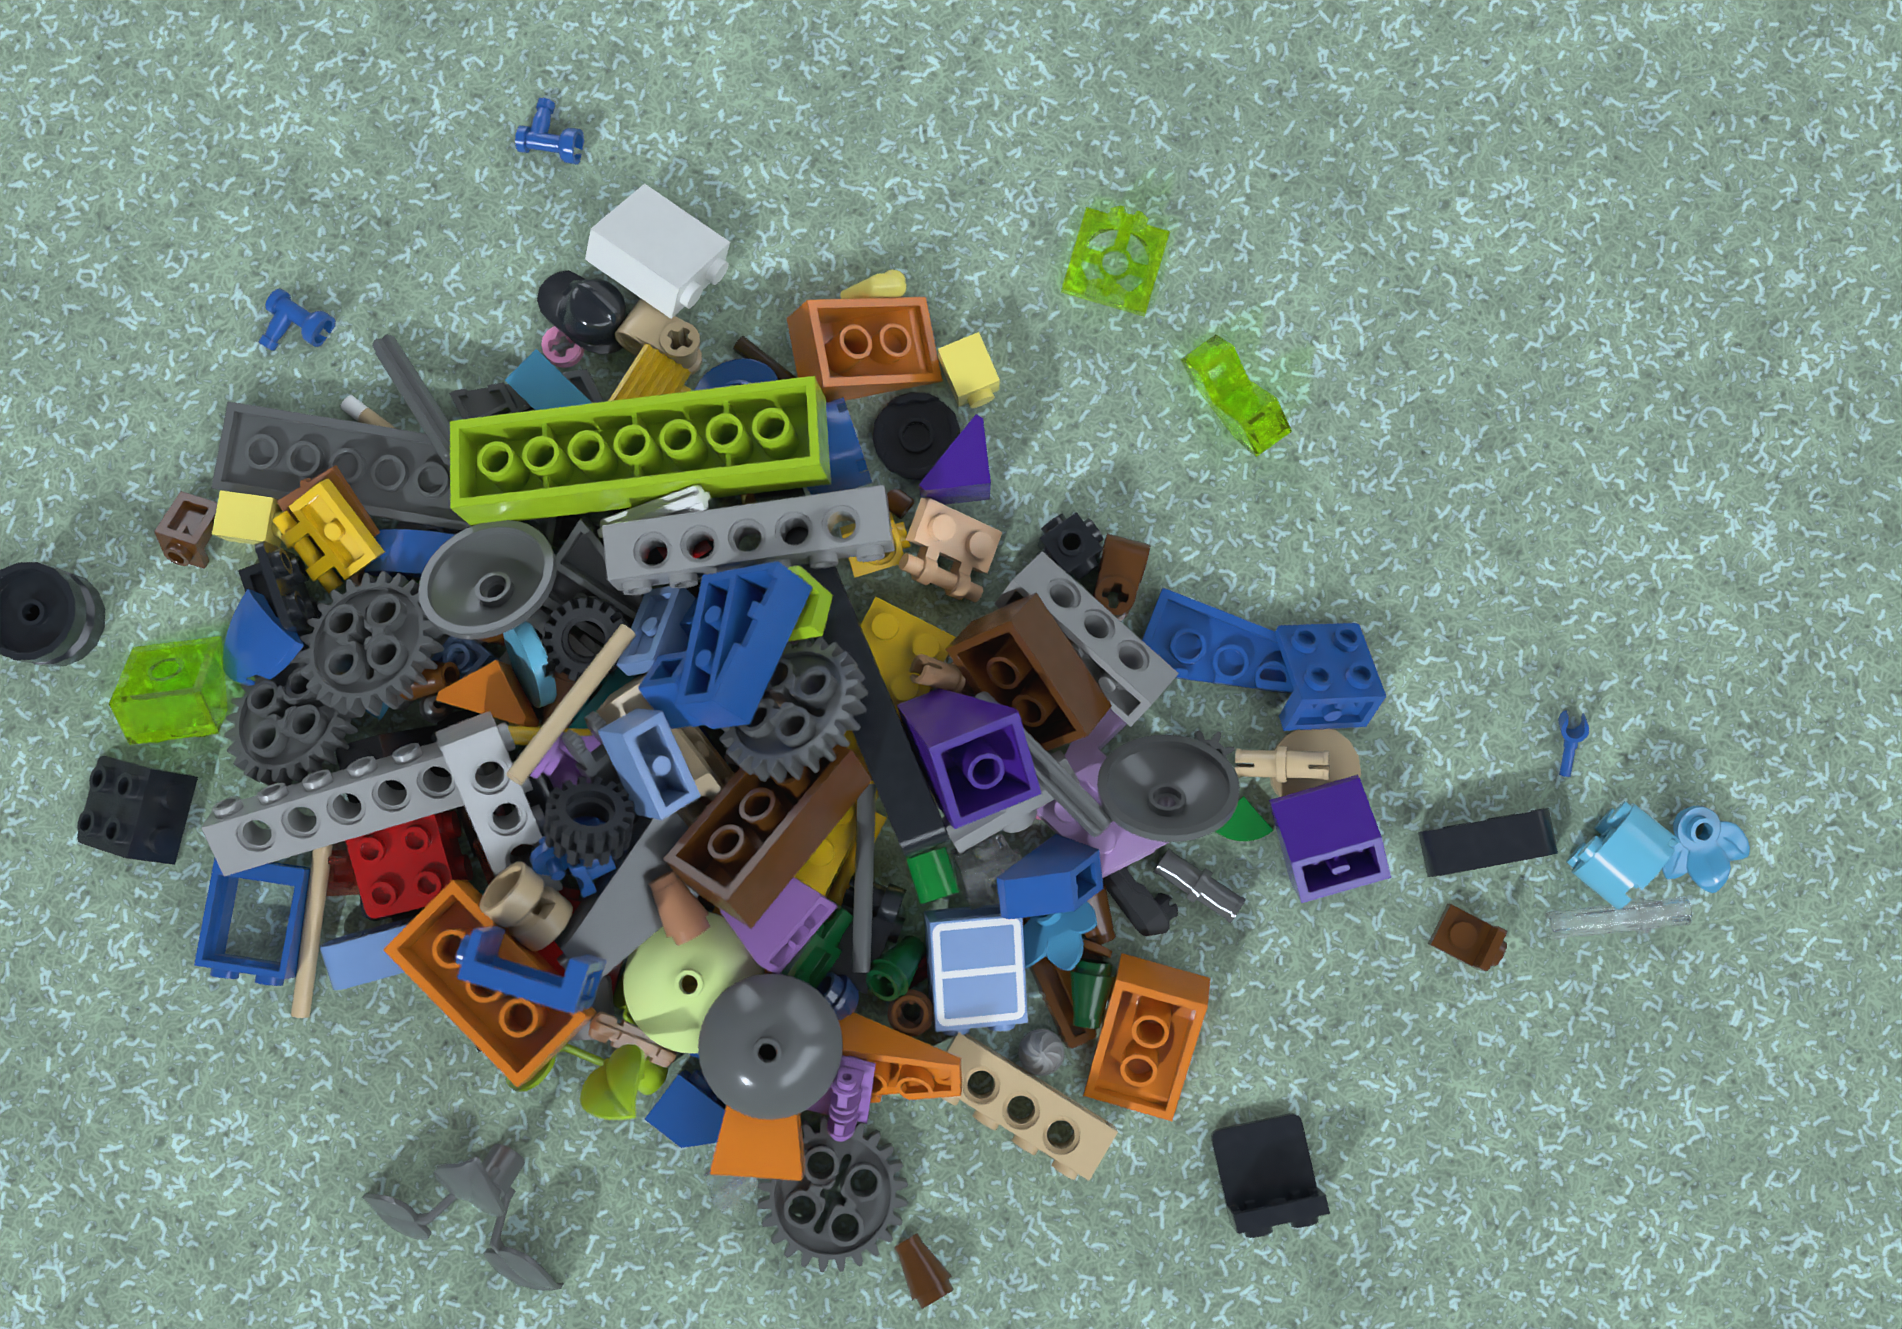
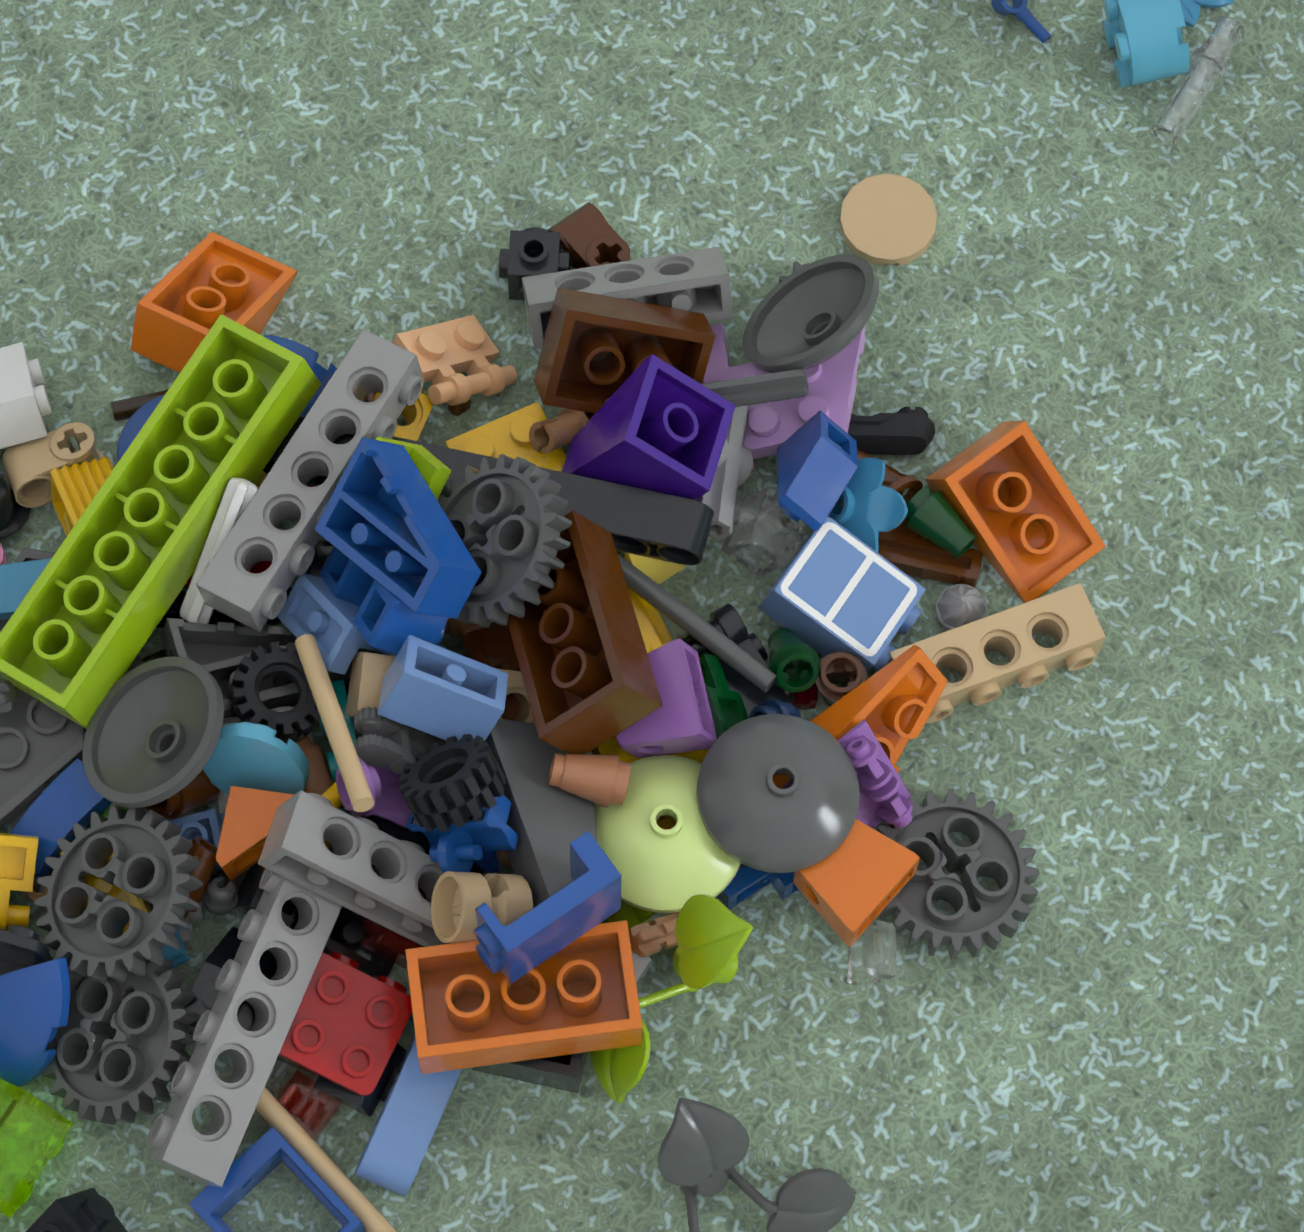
camera: 60 degrees left, 15 degrees down
(688, 1111) = (783, 944): blue slope -> none
(882, 285) = (170, 253): light yellow arm -> none
(918, 450) = (309, 320): black tile -> none
(923, 1272) = (1083, 848): reddish brown cone -> none
(933, 875) = (732, 570): green piece -> none
(962, 470) = (397, 285): dark purple slope -> none
(969, 371) = (310, 237): light yellow brick -> none
(1106, 290) = (330, 88): clear neon green piece -> none
(1199, 885) = (915, 376): dark grey pin -> none
(1215, 645) = (734, 204): blue wing -> none
(1240, 404) = (534, 52): clear neon green brick -> none
(1245, 824) = (890, 309): green tile -> none
(1267, 1175) = (1210, 499): black bracket -> none
(1283, 764) = (865, 229): tan pin -> none
(1329, 839) = (956, 239): dark purple slope -> none
(1330, 677) = (827, 139): blue bracket -> none
(1469, 939) = (1128, 202): reddish brown bracket -> none
(1488, 842) = (1055, 129): black beam -> none

